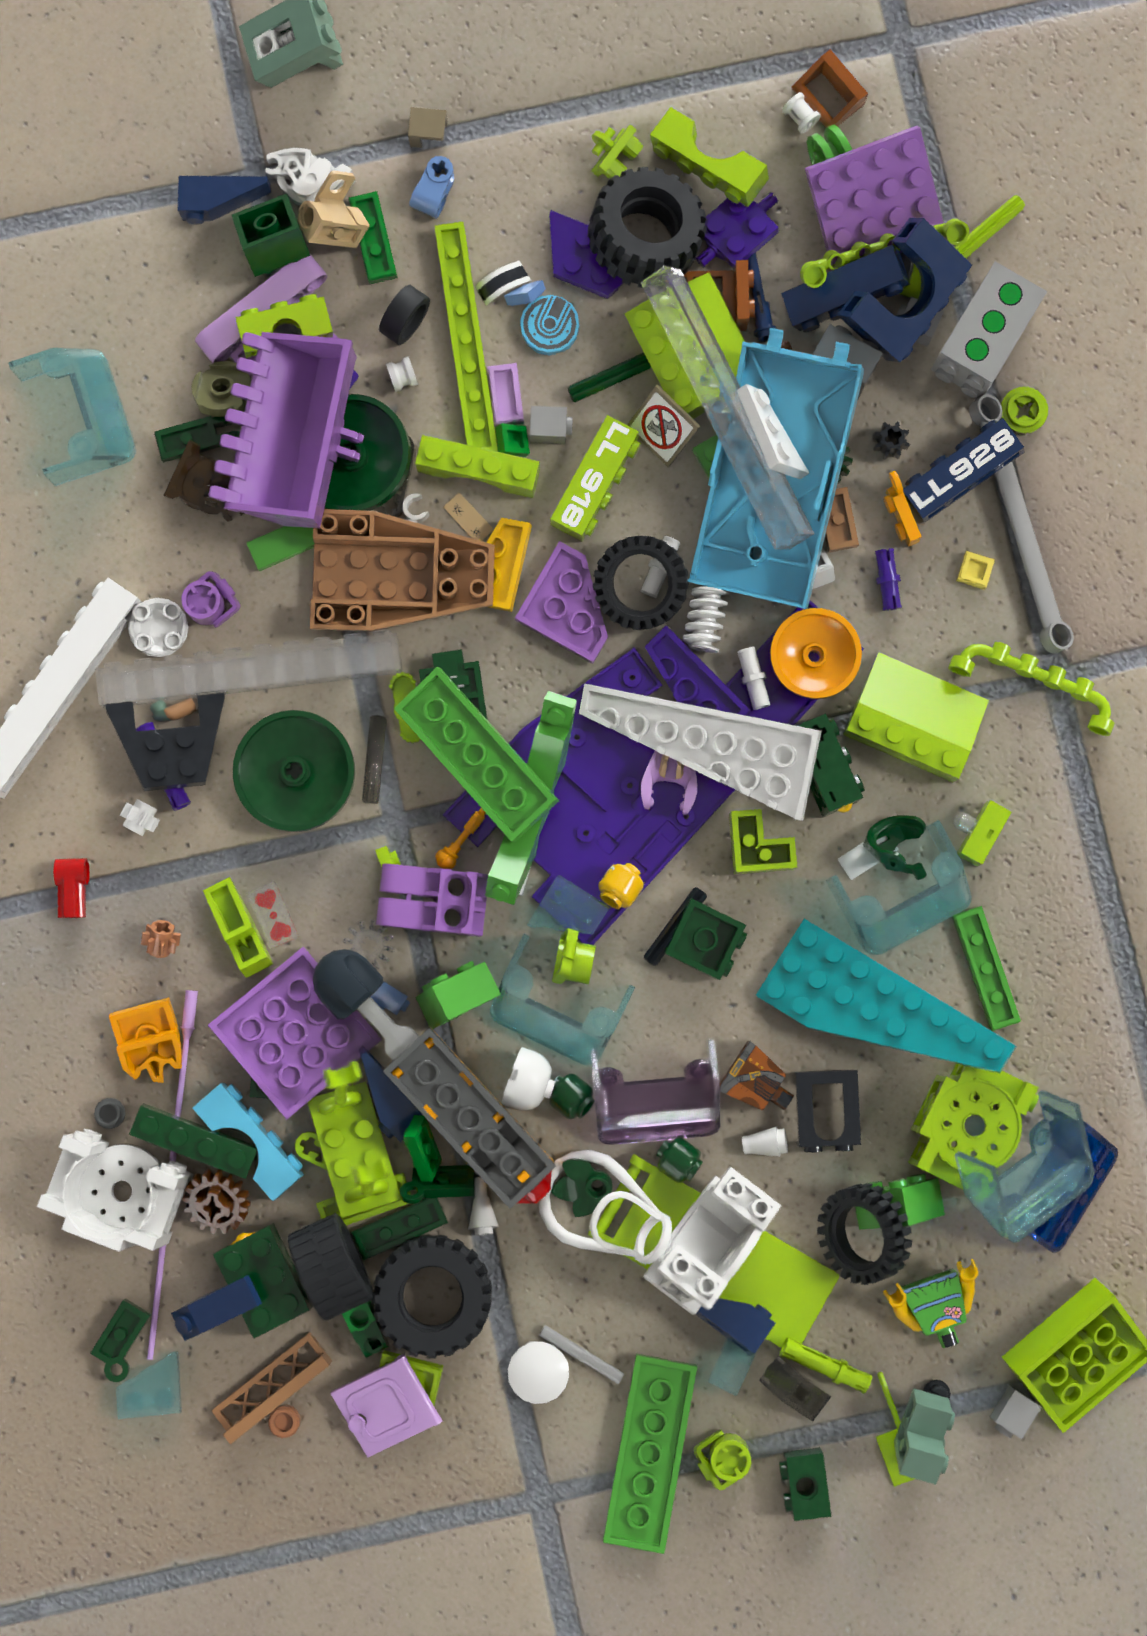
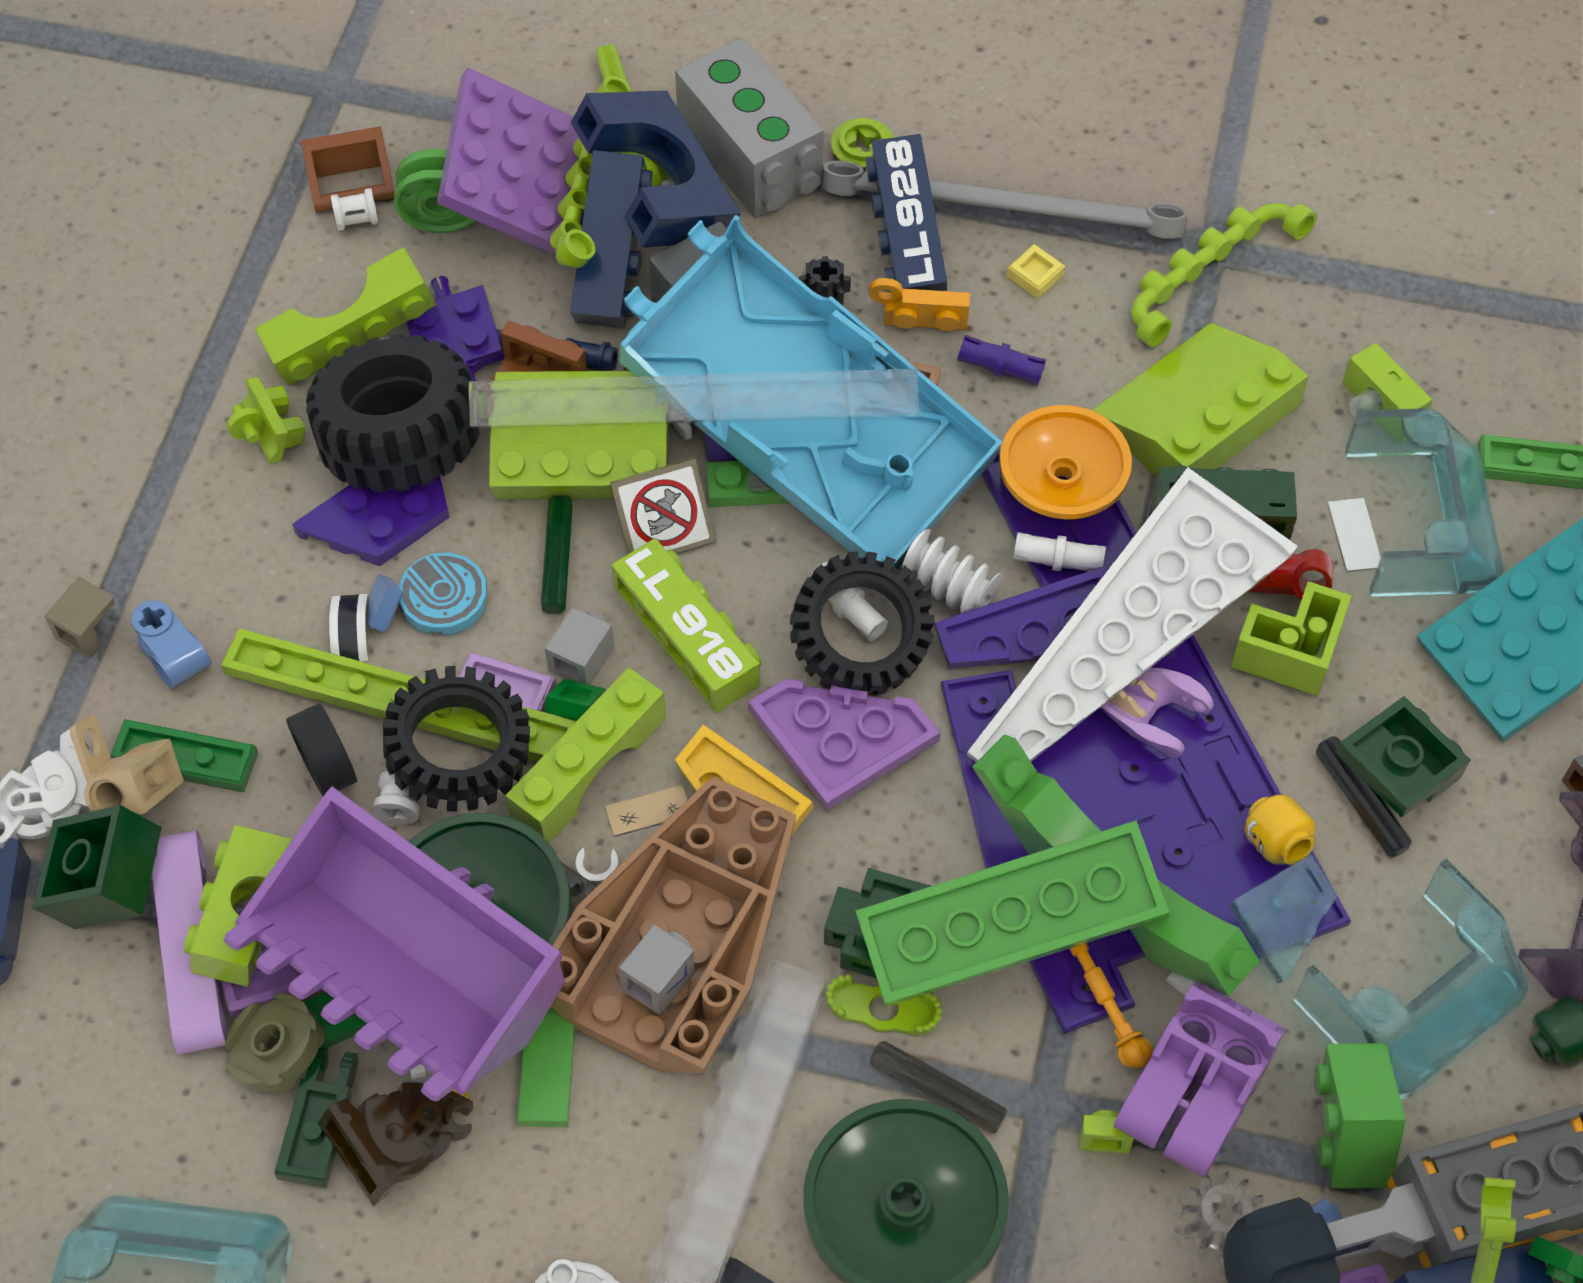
camera: 65 degrees left, 25 degrees down
(206, 603) = (575, 1214): medium lavender piece -> none
(358, 574) = (657, 968): none -> light grey brick
(449, 352) = (456, 785): none -> black tyre
(528, 1081) = (1526, 1071): white cylinder -> none
(573, 959) = (1363, 939): lime piece -> none
(771, 436) = (752, 361): white wing -> none
(810, 832) = (1288, 576): none -> red piece
(897, 830) = (1339, 493): dark green helmet -> none

